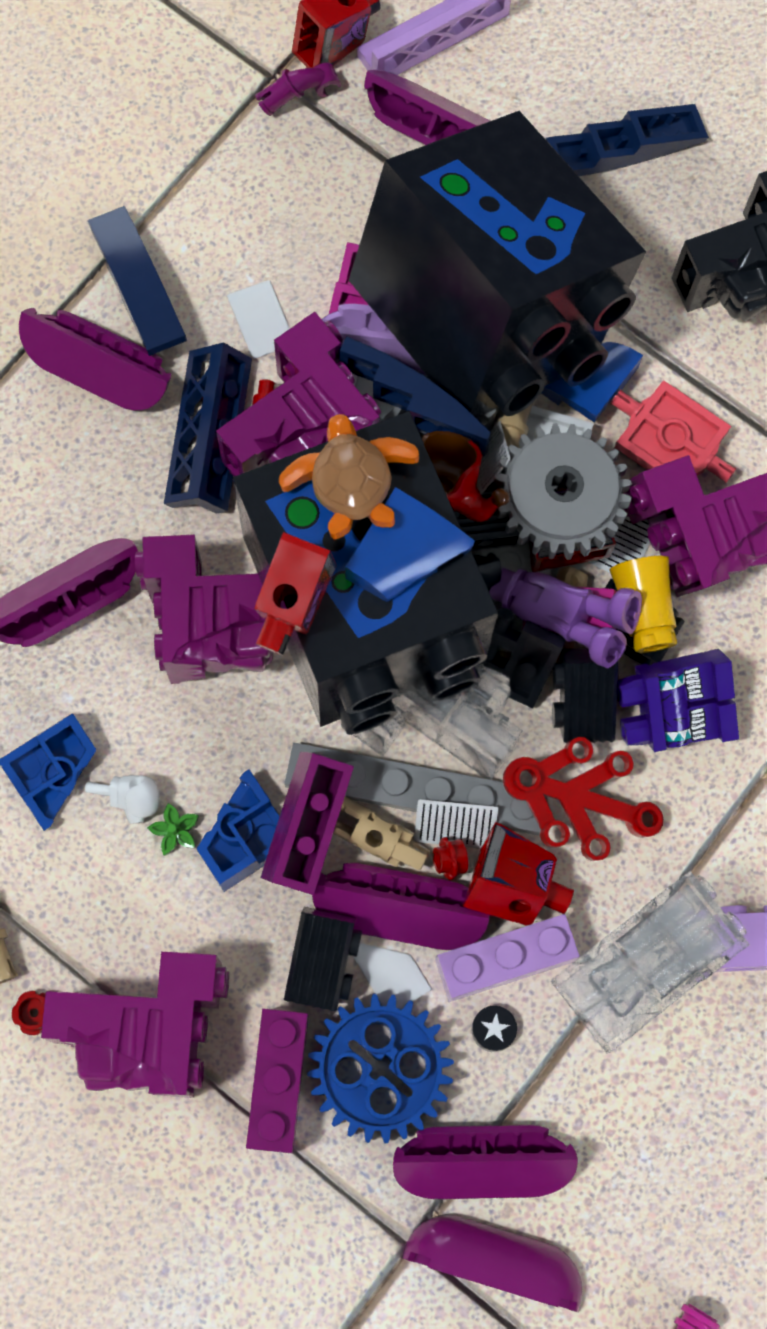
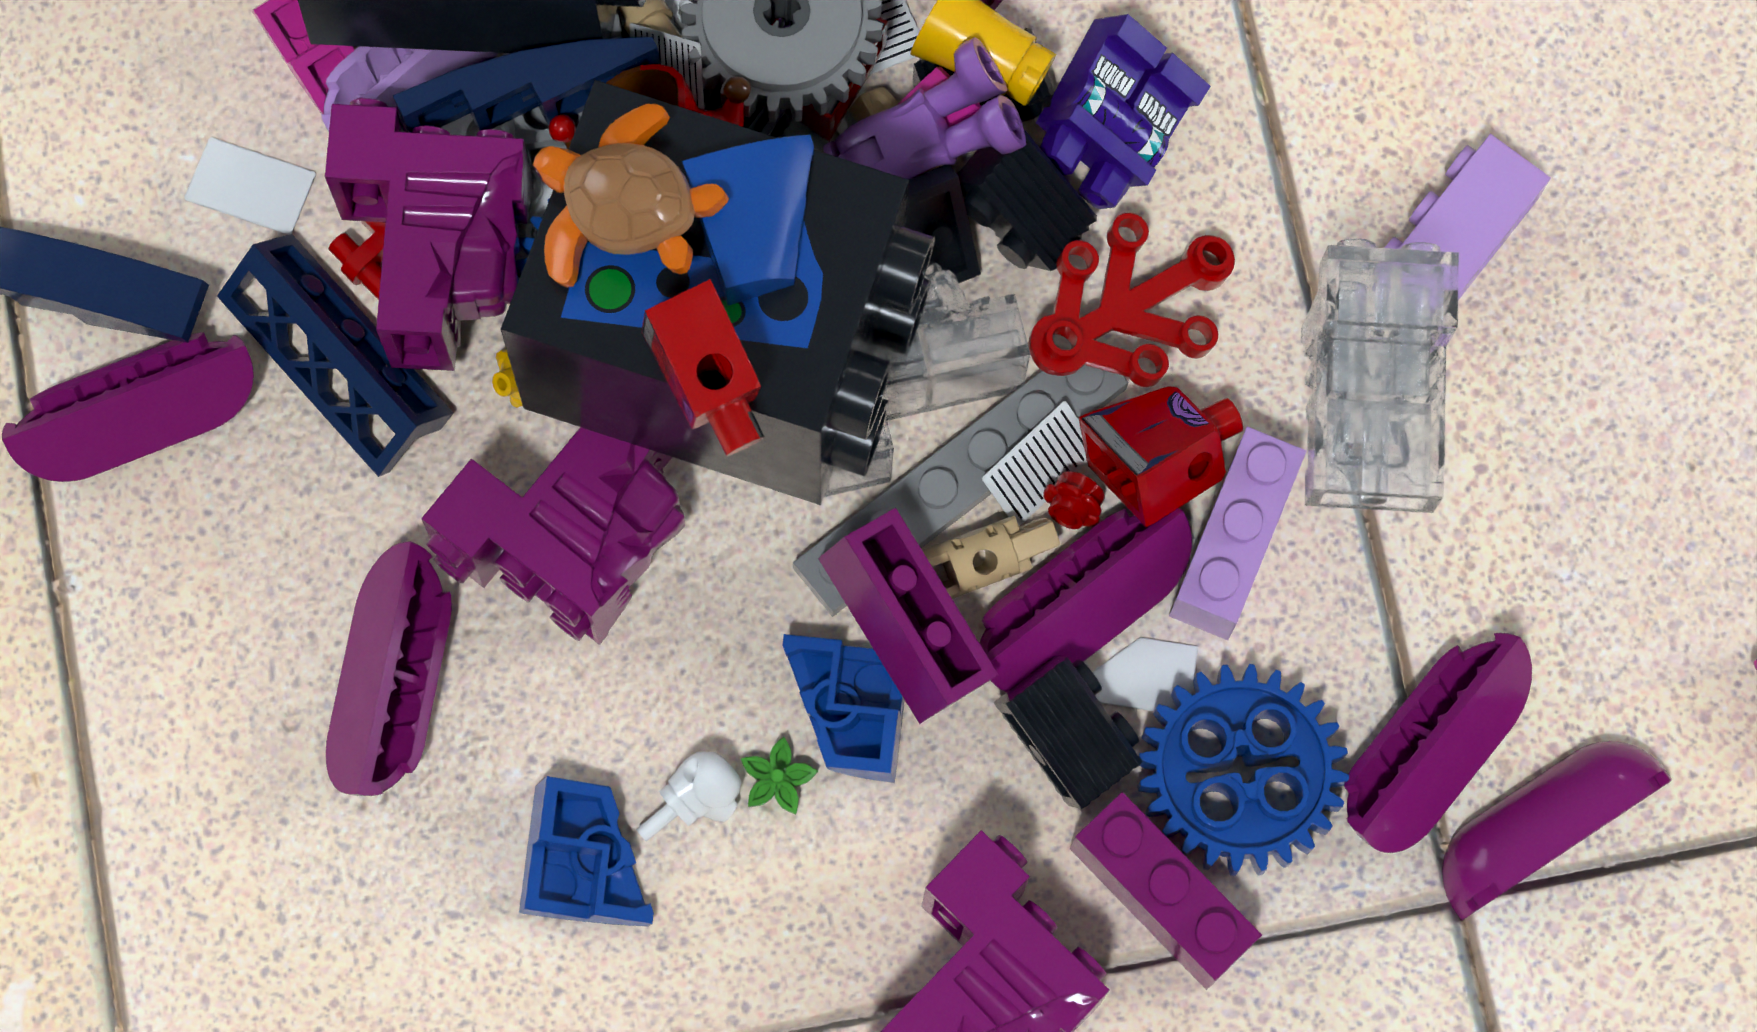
camera: 50 degrees left, 0 degrees up
(494, 1028) = (1299, 614): black tile -> none

